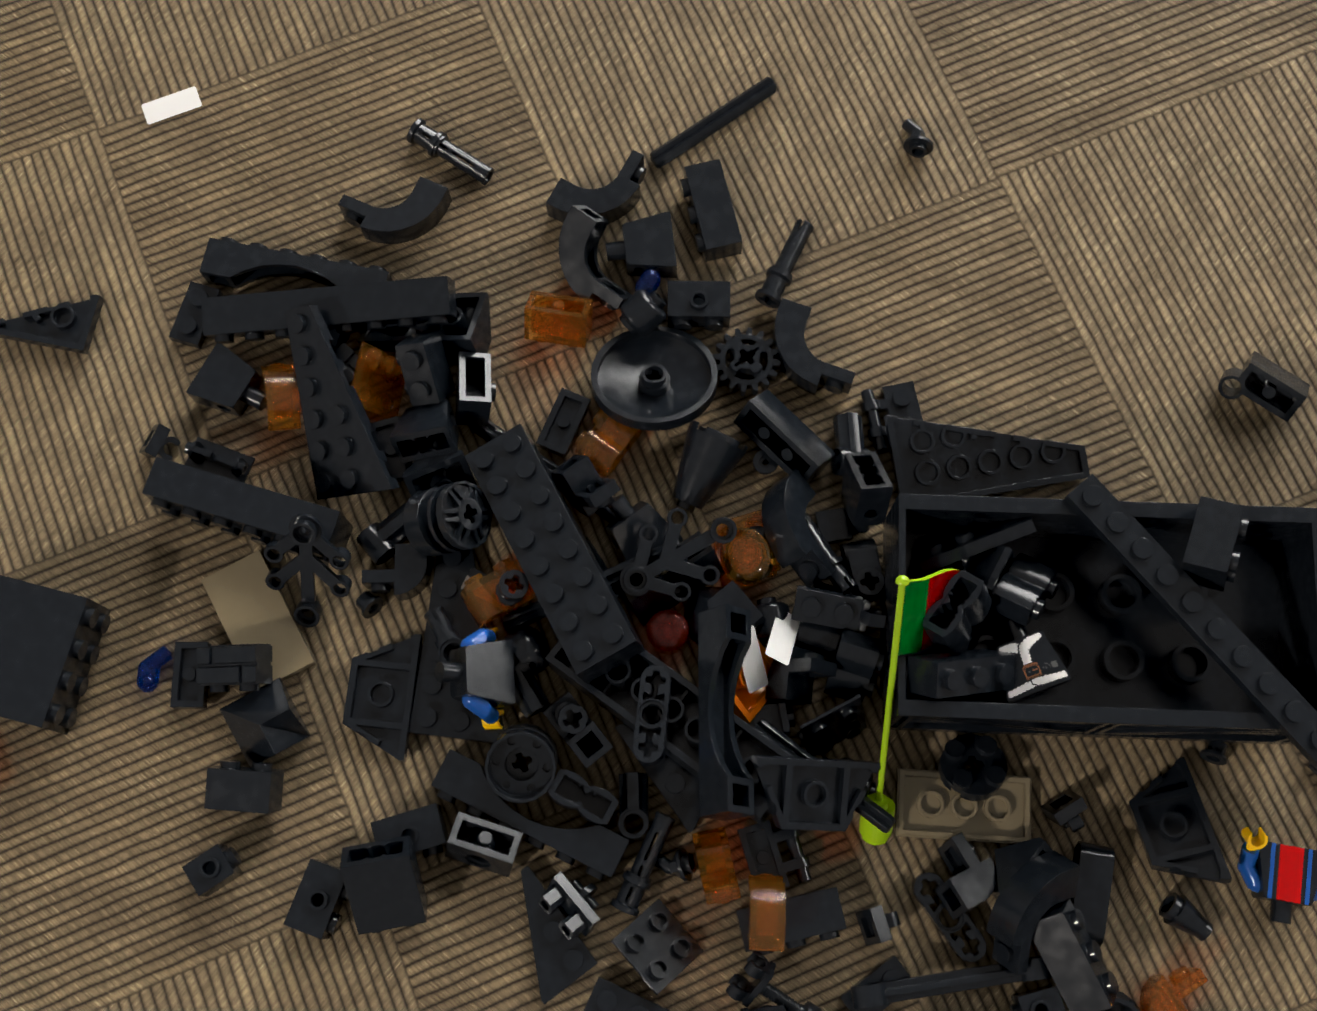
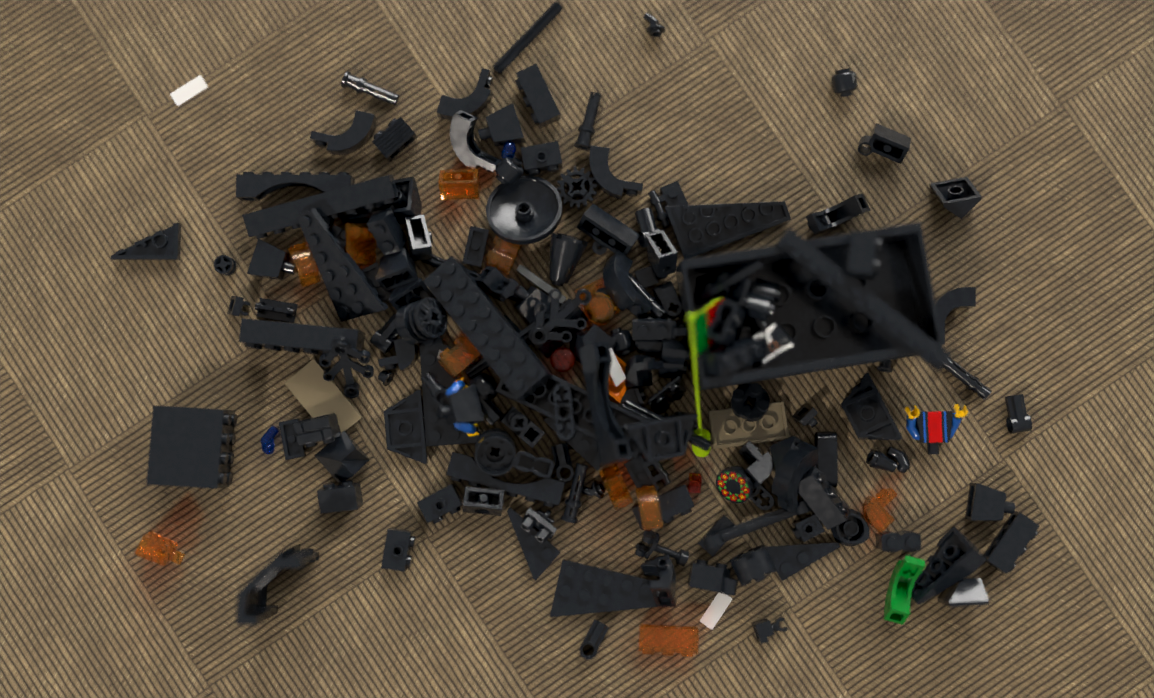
camera: 10 degrees left, 10 degrees up
(52, 925) = (253, 596): none -> black panel
(150, 369) = (222, 262): none -> black wheel
(188, 323) = (236, 229): black plate -> none
(213, 869) = (333, 545): black brick -> none
(384, 885) = (432, 535): black brick -> none
(471, 232) = (394, 138): none -> black brick
(521, 587) = (472, 350): black bush -> none
(650, 495) = (538, 282): none -> dark grey tile
(657, 946) = (591, 536): black hinge -> none
(782, 639) = (629, 352): white sticker -> none
(853, 888) = (694, 483): none -> clear red piece
(876, 924) = (711, 499): black tile -> none
(922, 905) = (734, 485): none -> tile
(1172, 483) = (838, 214): none -> black arch
(1210, 279) = (844, 82): none -> black head
(1222, 918) = (903, 462): none -> black arm

